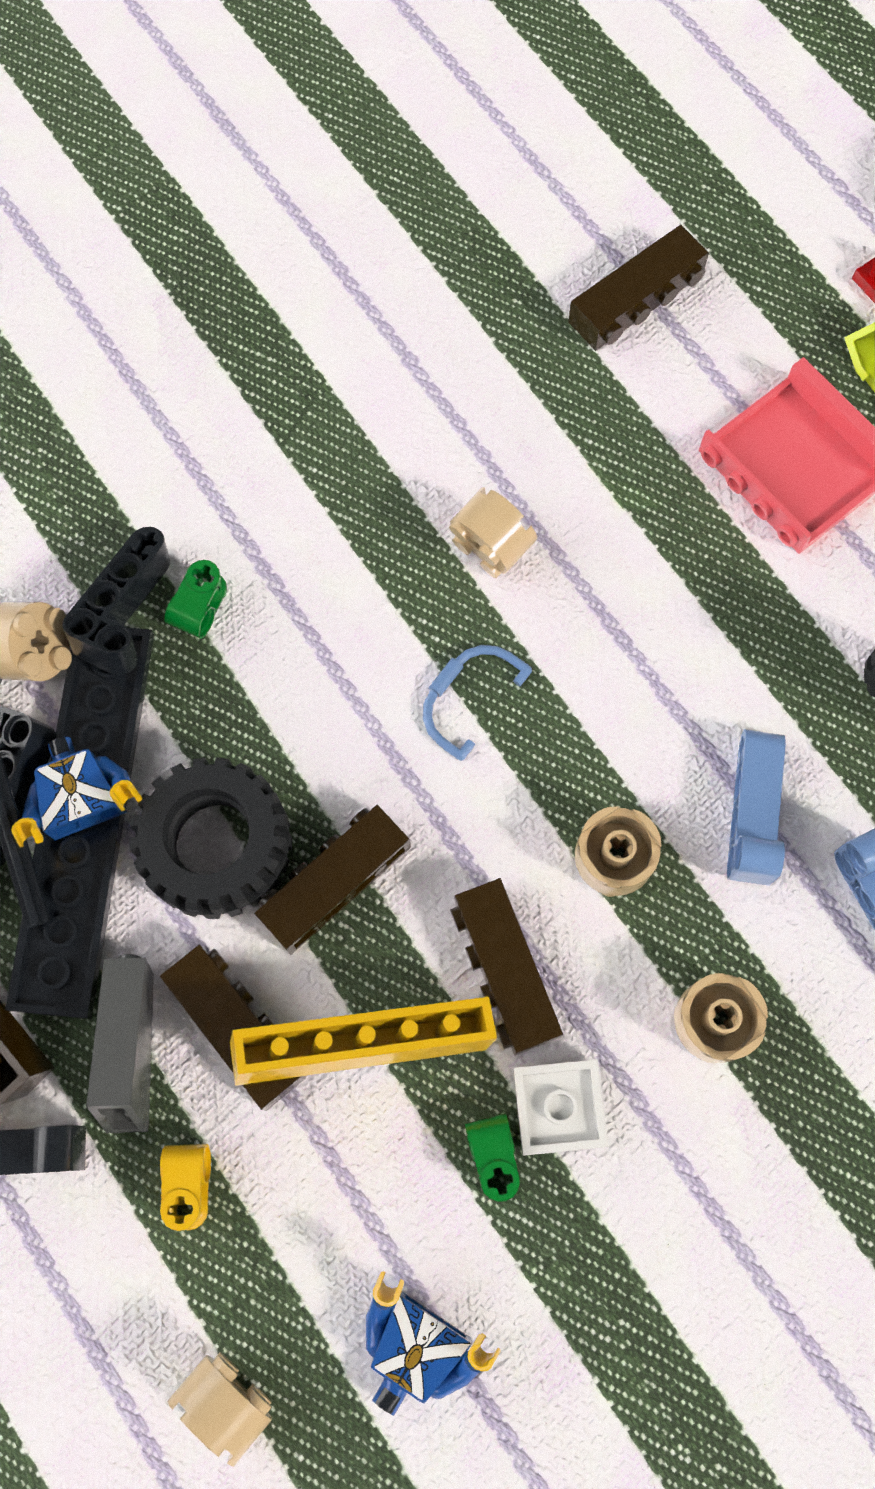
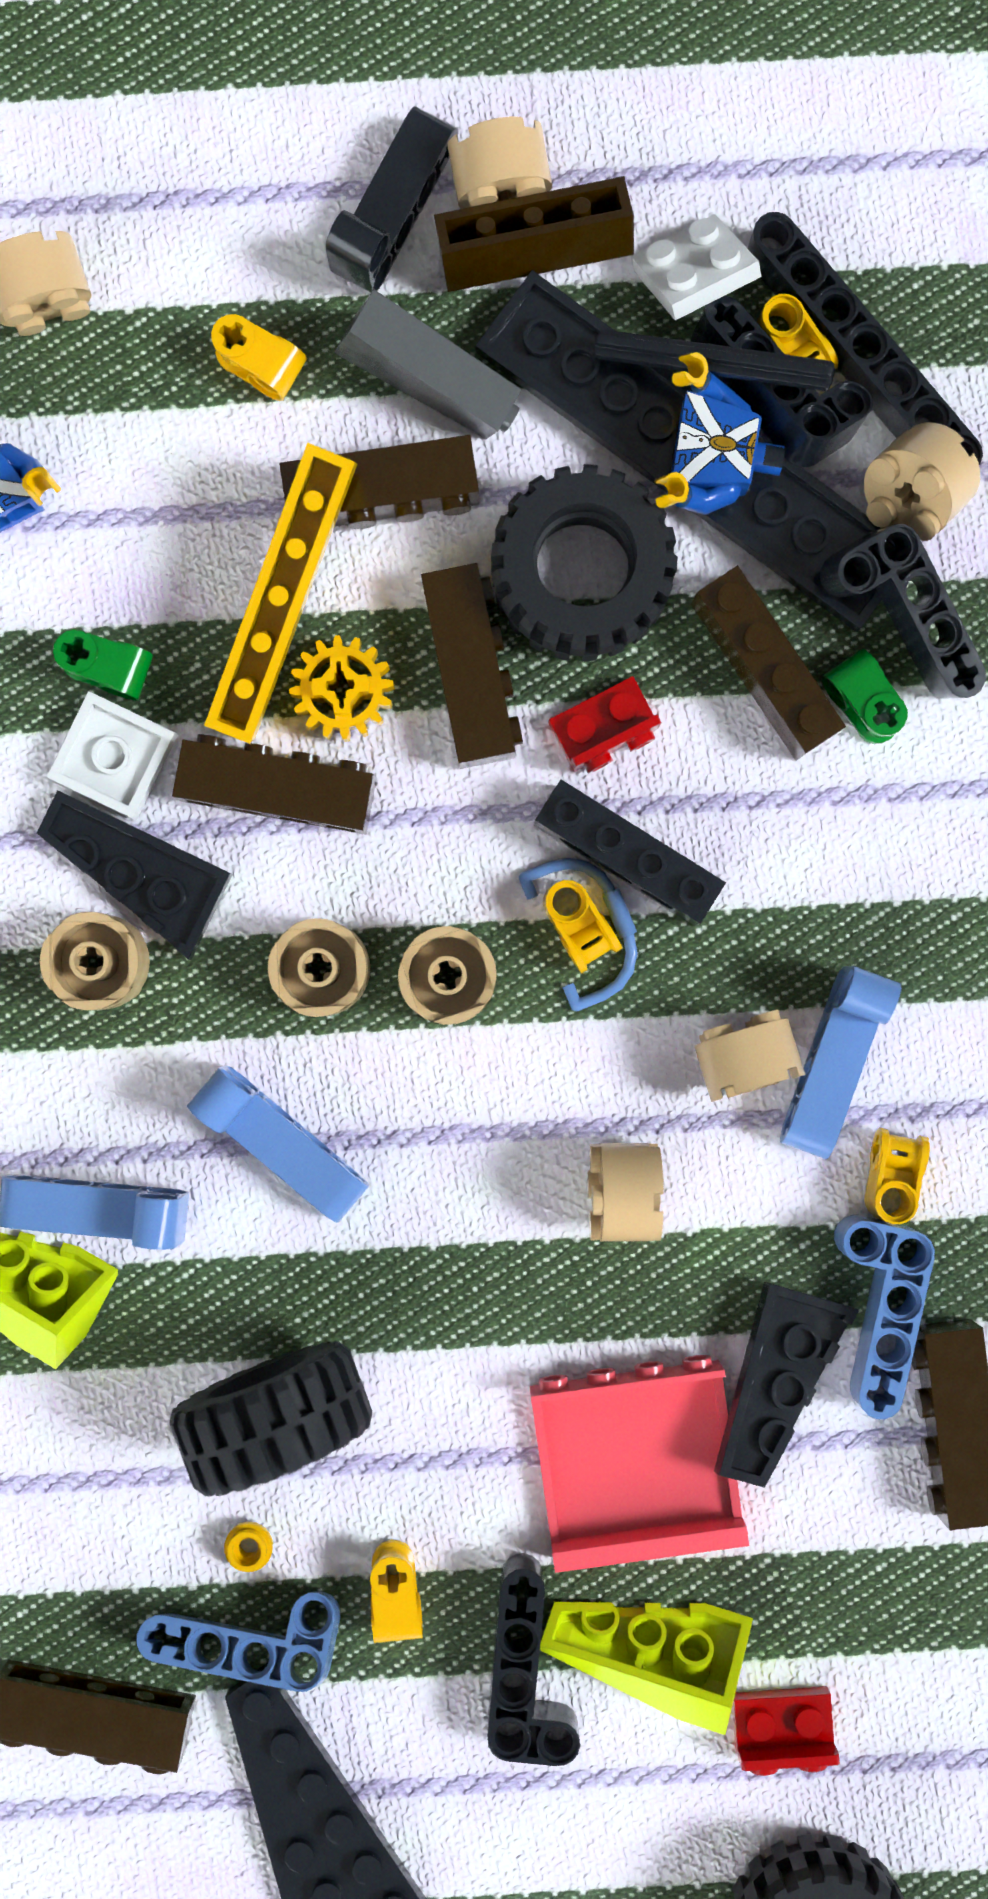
camera: 120 degrees right, 15 degrees up
(211, 675) = (767, 663): none -> dark brown brick
(320, 761) = (605, 725): none -> red bracket
(401, 691) = (629, 853): none -> black brick
(420, 949) = (319, 689): none -> yellow gear
(452, 483) = (837, 1058): none -> medium blue beam
(474, 692) = (581, 926): none -> yellow piece
(506, 407) = (896, 1172): none -> yellow piece
(561, 738) = (423, 962): none -> tan brick
(631, 1022) = (149, 876): none -> black wing
(633, 555) = (625, 1192): none -> tan brick
(643, 349) = (880, 1319): none -> medium blue beam
(674, 407) = (783, 1361): none -> black wing

